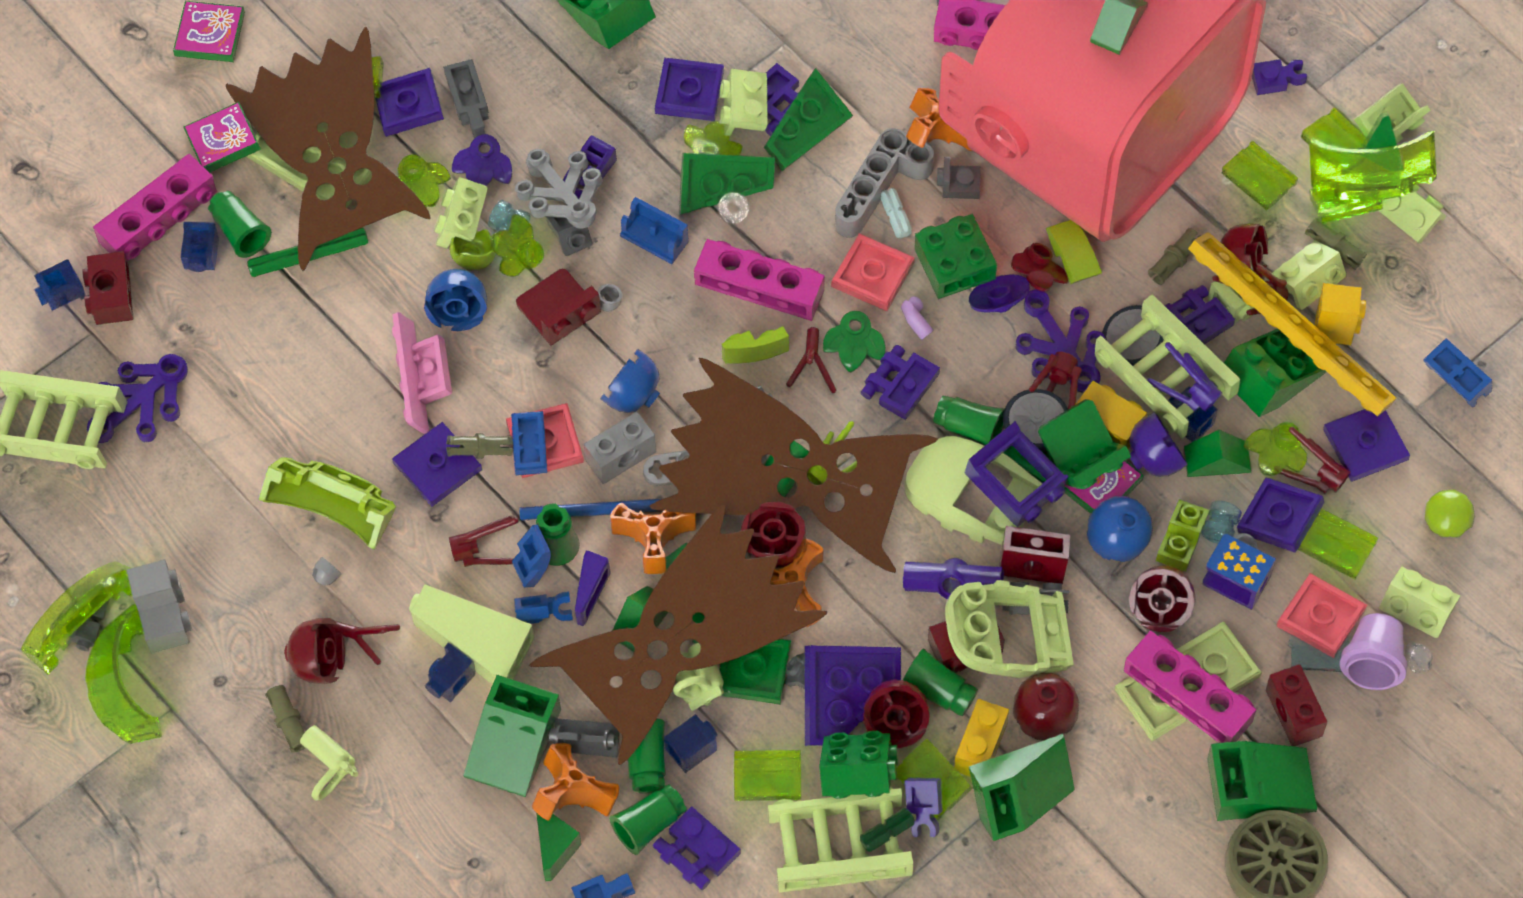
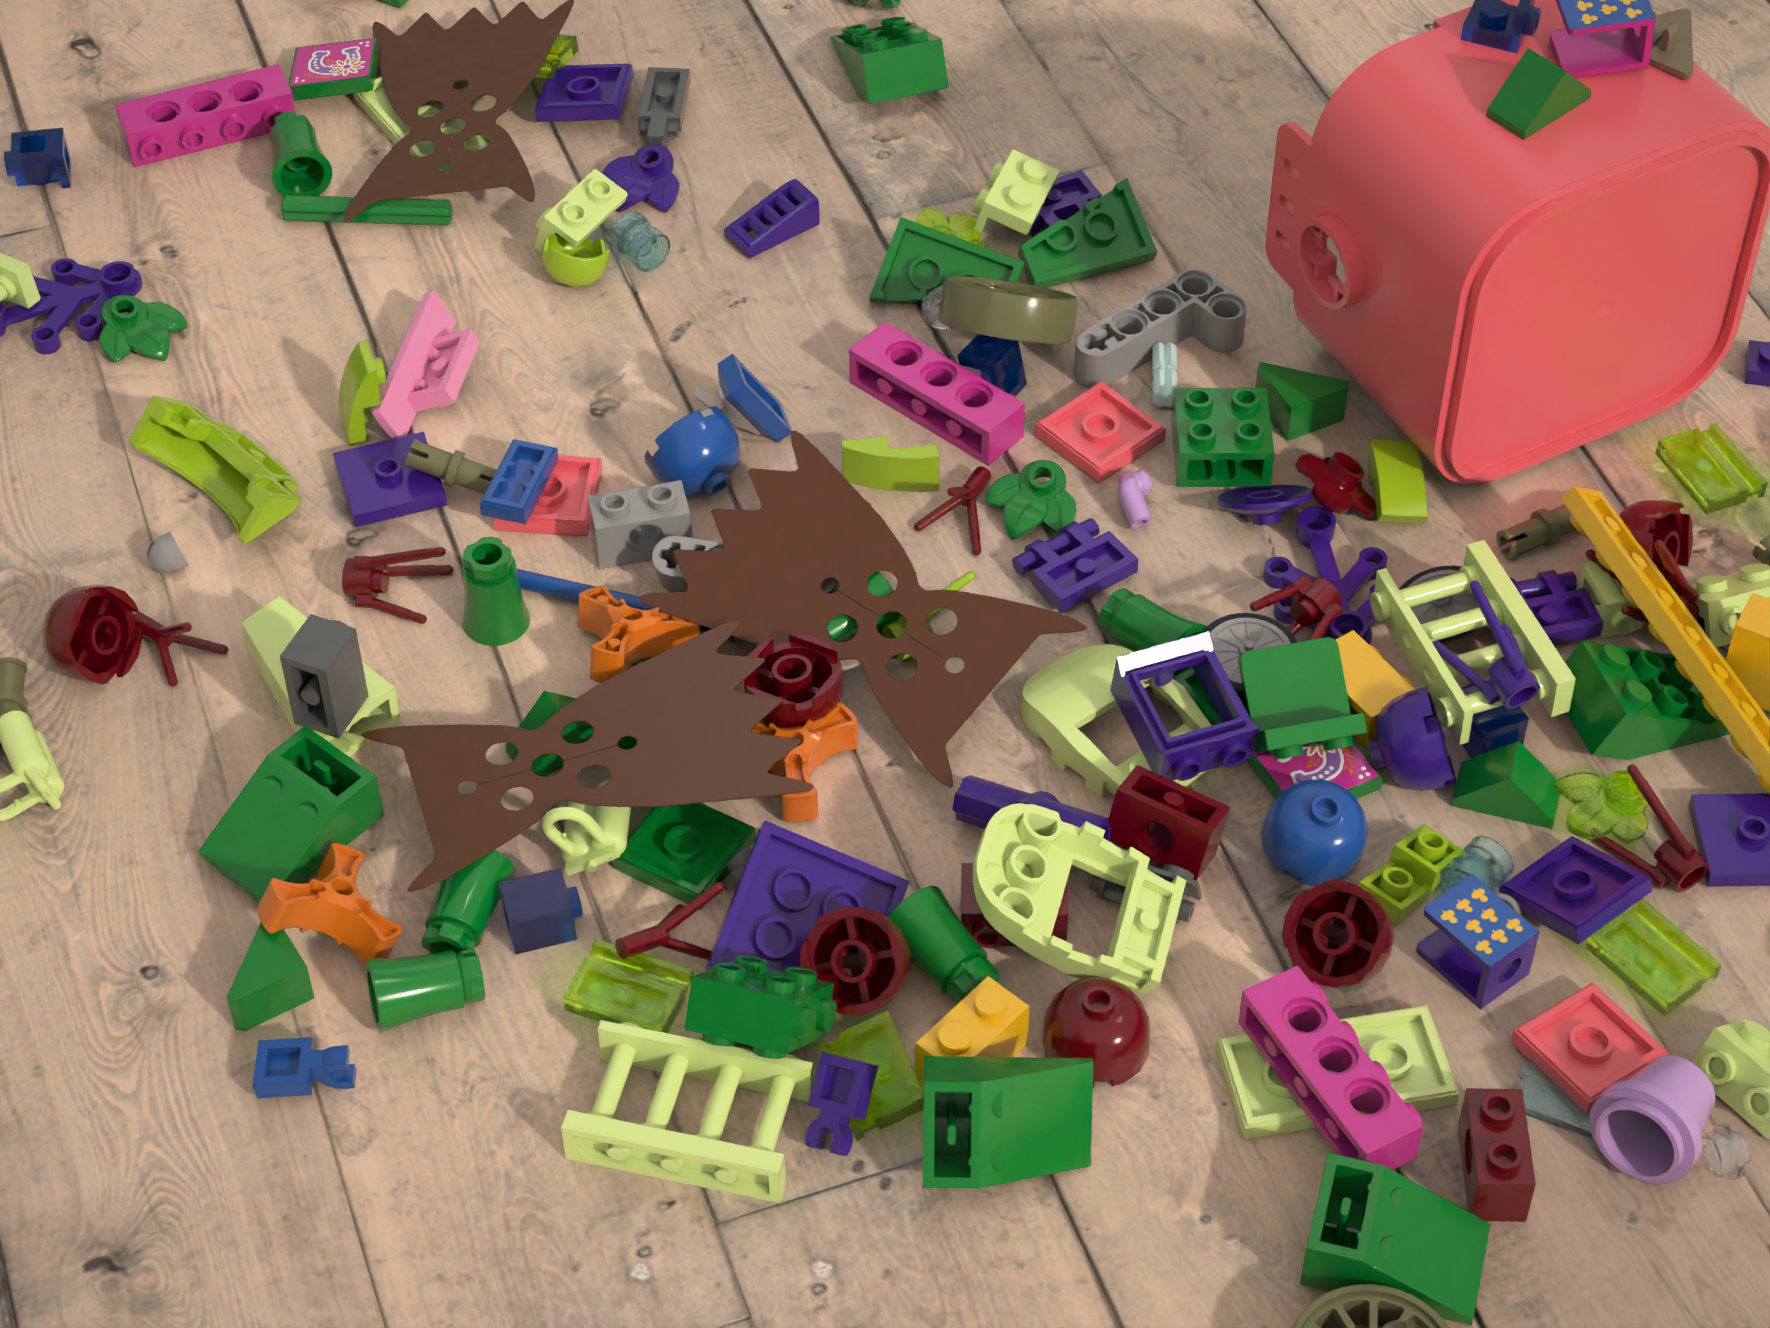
camera: 20 degrees right, 15 degrees down
(112, 304) = (98, 177): dark red brick -> none
(199, 246) = (236, 165): clear blue brick -> none
(209, 405) = (142, 330): none -> green plate
(392, 411) = (360, 391): none -> lime slope
(425, 180) = (553, 172): clear neon green plate -> none
(450, 674) = (254, 720): clear blue brick -> none
(456, 300) = (516, 301): blue cylinder -> none
(498, 640) = (324, 675): none -> dark grey brick
(513, 247) = (627, 262): clear neon green plate -> none
(532, 558) = (442, 608): blue slope -> none
(535, 608) = (416, 679): blue plate -> none
(558, 305) = (652, 351): dark red bracket -> none
(569, 237) = (713, 275): dark grey bracket -> none
(579, 211) = (729, 244): light grey plant -> none
(586, 737) = (389, 853): dark grey hinge -> none
(593, 578) = (507, 674): dark purple slope -> none
(612, 297) = (719, 349): light grey hinge -> none
(641, 332) = (745, 401): none -> blue piece
(654, 231) = (824, 303): blue hinge -> none
(689, 89) = (949, 171): dark purple plate -> none
(703, 841) = (489, 1048): dark purple plate -> none
(771, 733) = (660, 934): none -> dark red plant
(784, 205) = (1008, 310): none -> olive piece
(789, 244) = (997, 360): none -> clear blue bracket
(881, 832) = (776, 1110): dark green piece -> none
(929, 123) = (1258, 283): orange piece -> none
(959, 181) = (1255, 349): dark grey bracket -> none
(990, 207) = (1302, 400): none -> green slope

